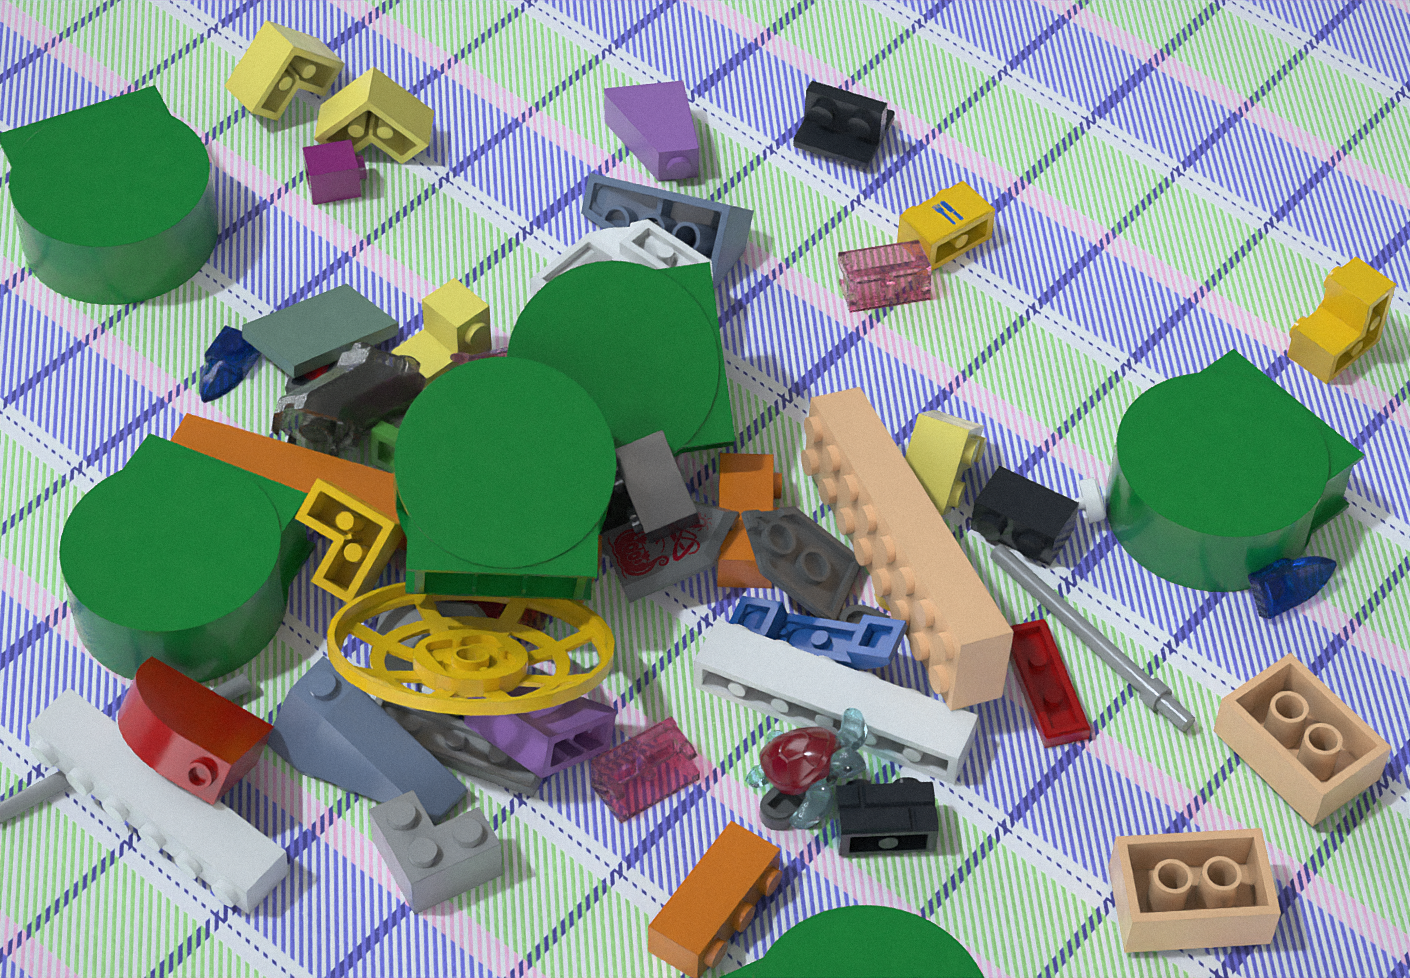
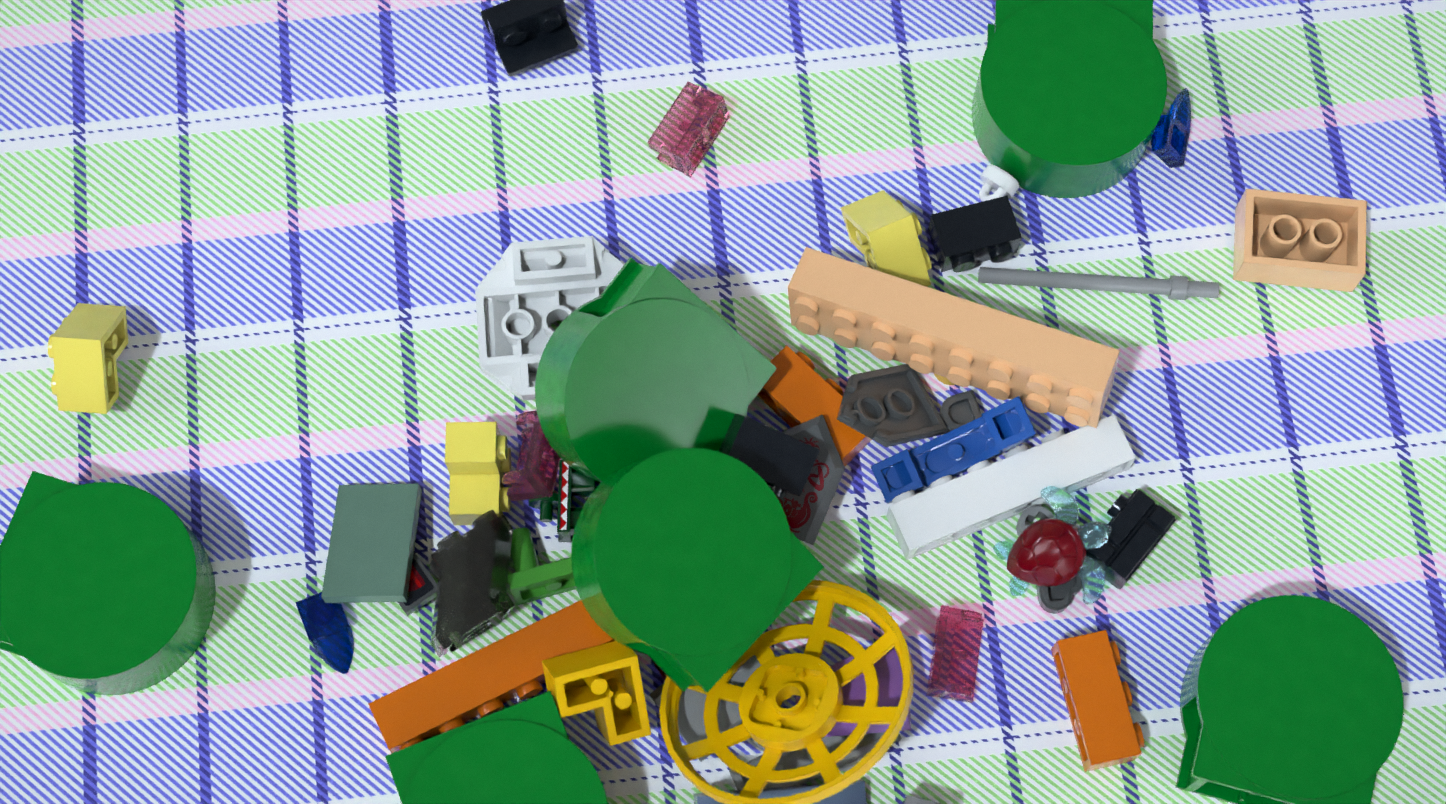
camera: 45 degrees left, 20 degrees up
(333, 171) = (222, 404): magenta brick -> none
(376, 112) = (204, 333): light yellow brick -> none
(655, 127) = (407, 151): medium lavender slope -> none
(705, 225) = (522, 210): sand blue wedge -> none
(948, 223) = (685, 50): yellow brick -> none
(1046, 685) = (1137, 357): red tile -> none
(1193, 890) = (1350, 410): light nougat brick -> none

